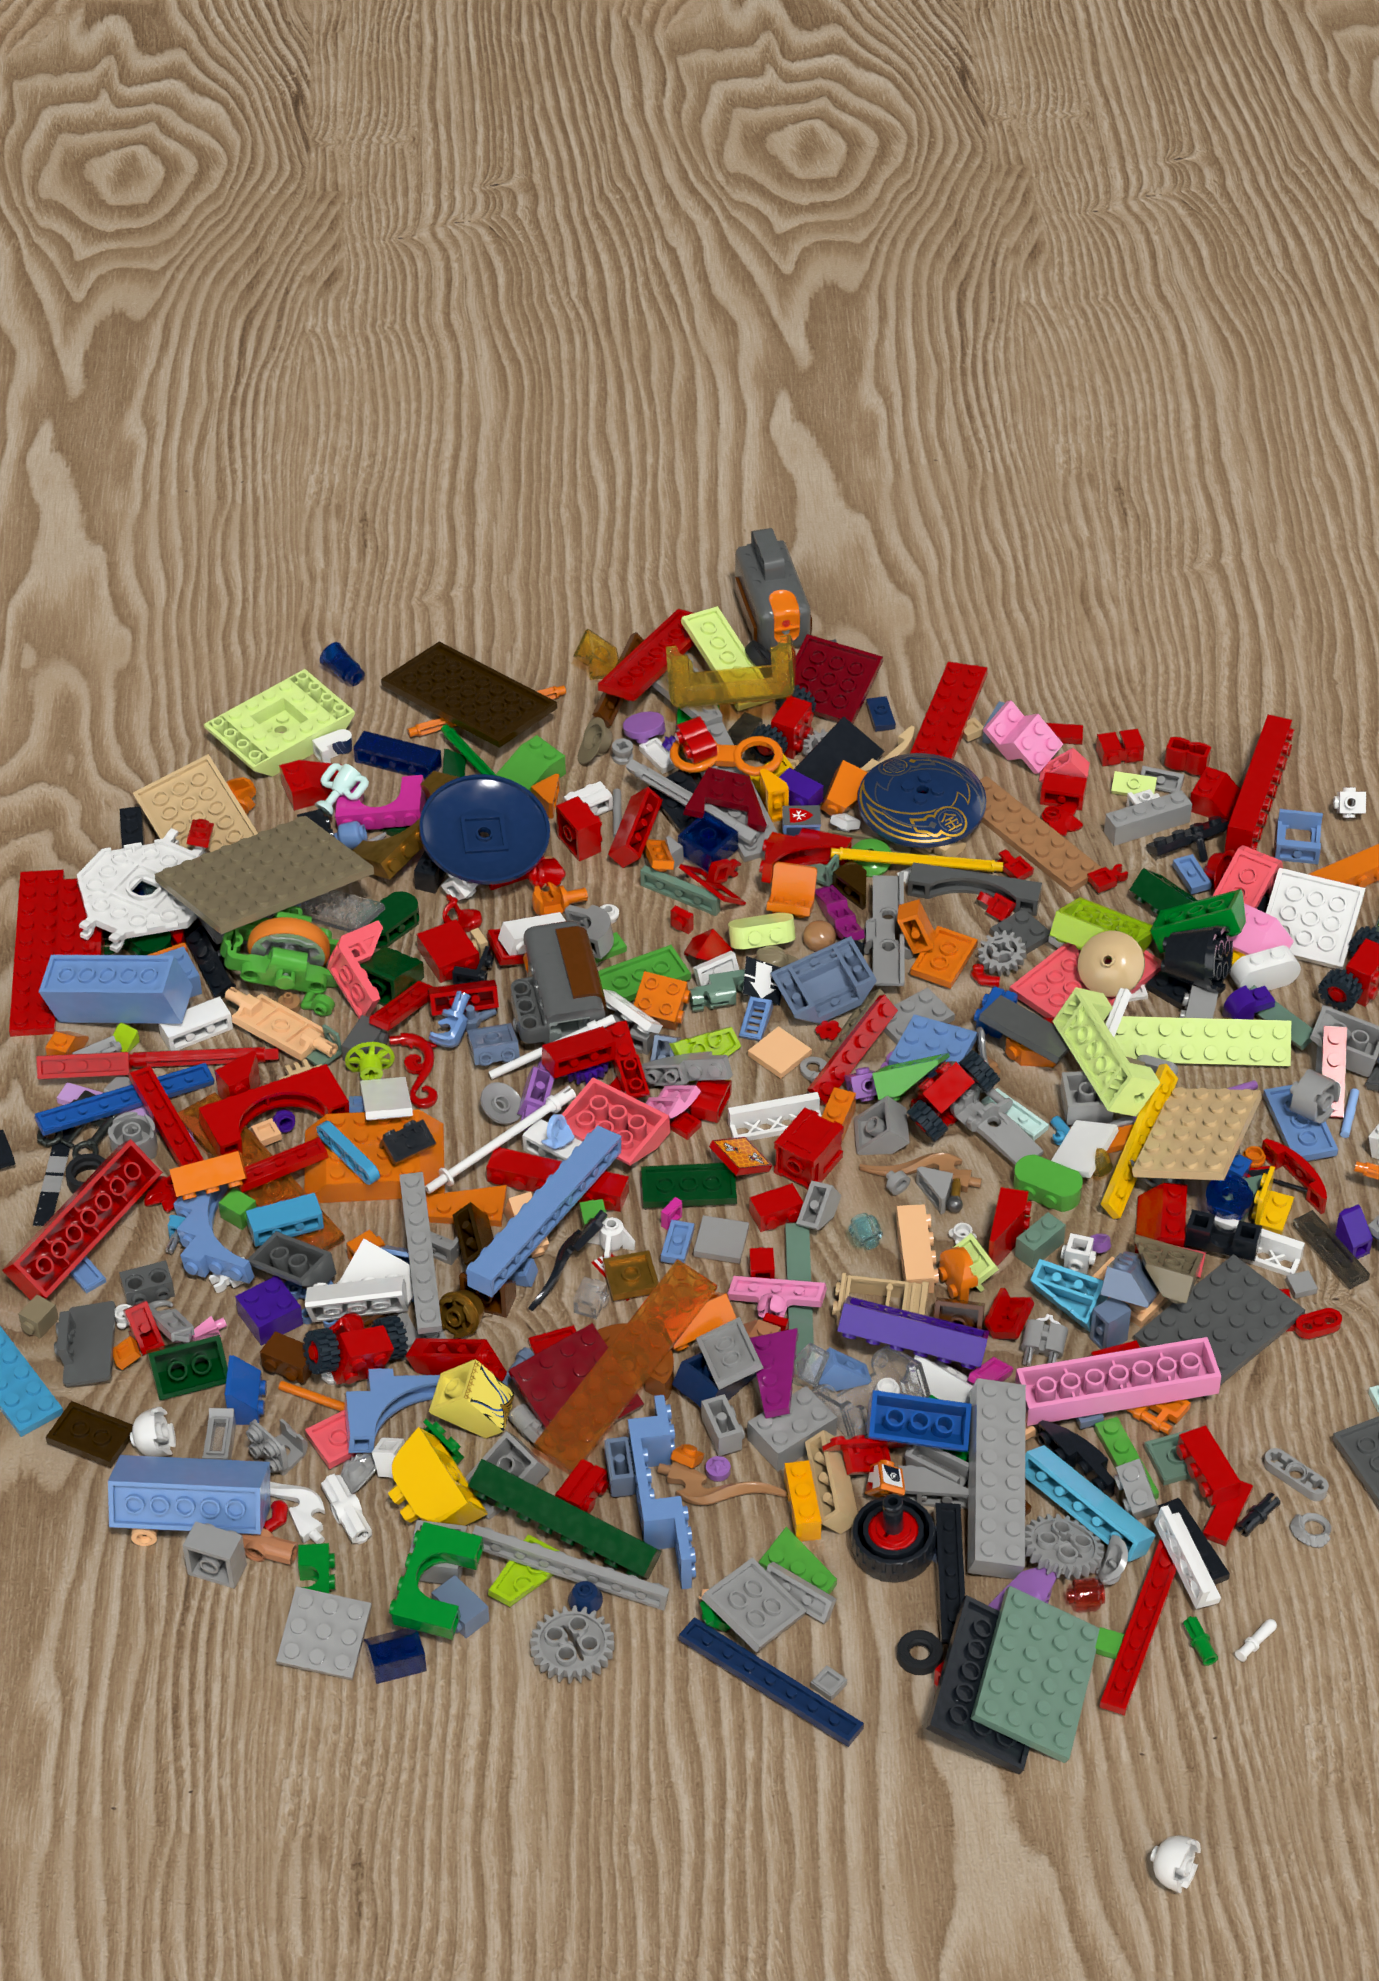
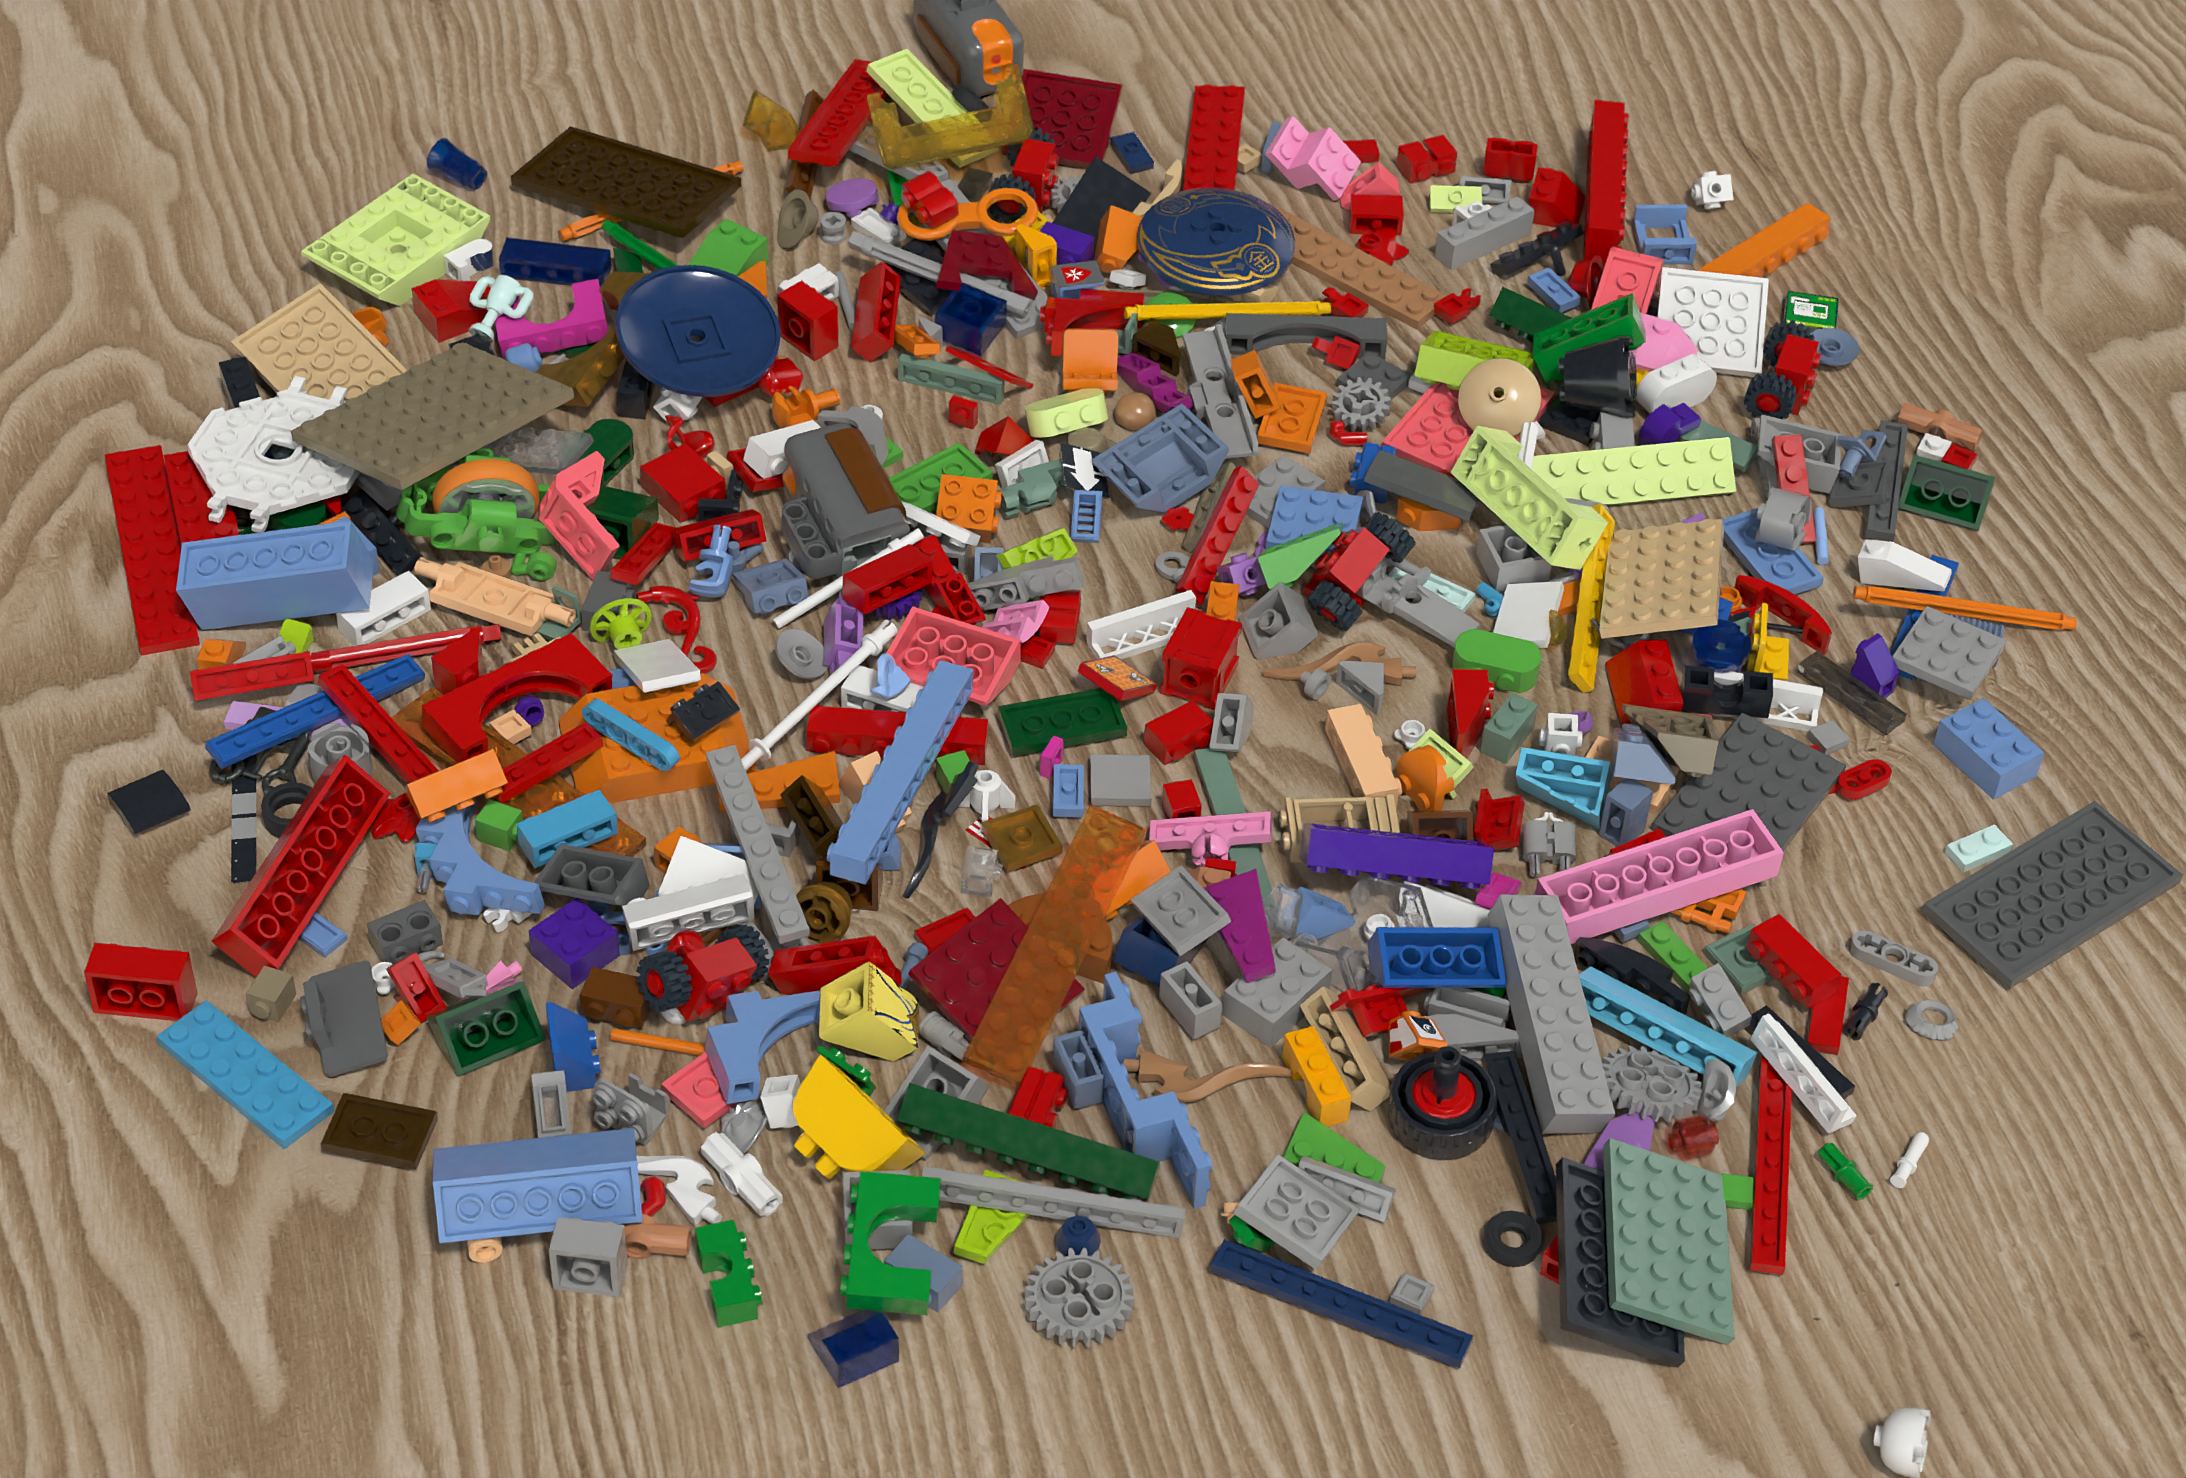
camera: 15 degrees left, 0 degrees up
(153, 1434) = (463, 1117): white cylinder -> none
(200, 833) = (335, 377): red plate -> none
(324, 1633) = (758, 1334): light grey plate -> none
(687, 1455) = (1156, 1043): orange plate -> none
(718, 1468) = (1197, 1054): medium lavender tile -> none
(721, 869) = (996, 348): red plate -> none
(779, 1052) = (1126, 552): light nougat tile -> none
(865, 1231) = (1295, 745): clear light blue head -> none
(955, 1203) = (1392, 699): piece -> none

